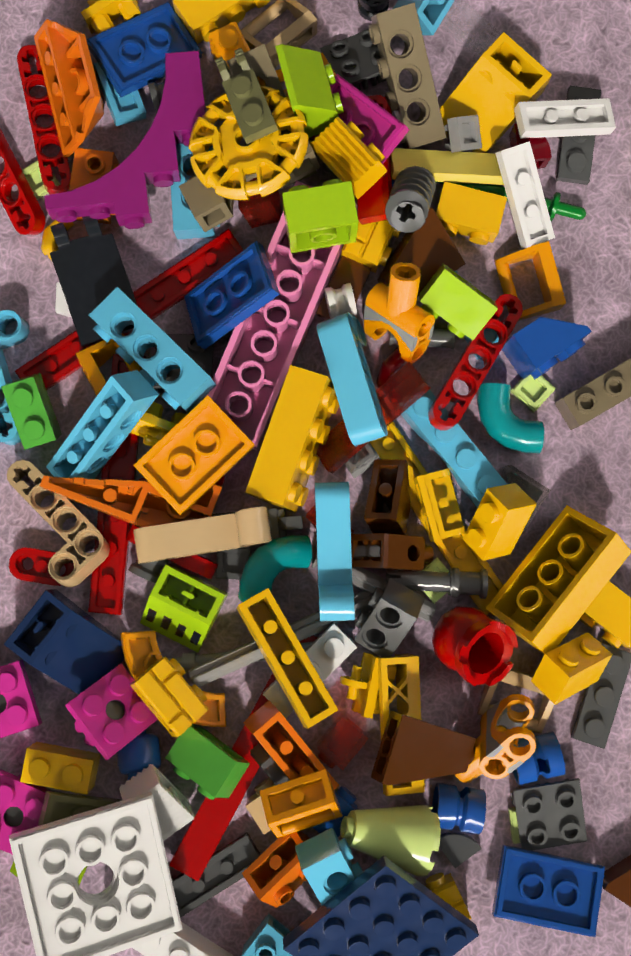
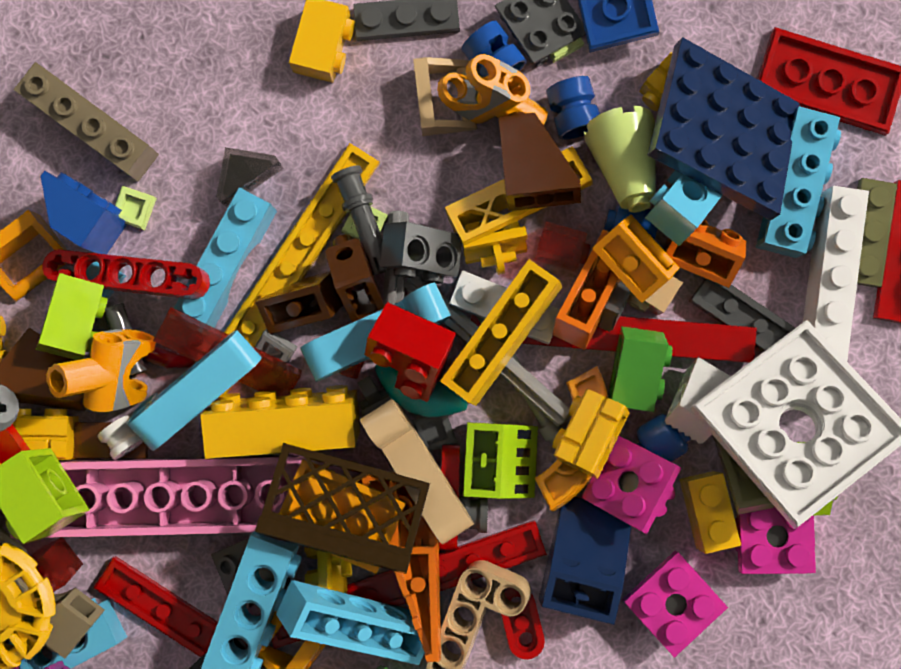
camera: 110 degrees left, 0 degrees up
(172, 445) = (332, 540): none -> dark brown fence
(231, 295) = (159, 552): blue tile -> none
(307, 576) = (412, 347): none -> red brick
(439, 505) = (287, 251): yellow hinge -> none
(458, 847) = (611, 92): dark grey tile -> none
(474, 645) = (409, 157): red tile -> none
(499, 521) = (277, 183): yellow brick -> none
(503, 424) = (179, 222): teal cylinder -> none
(559, 579) = (310, 102): yellow brick -> none
(571, 667) = (390, 55): yellow brick -> none

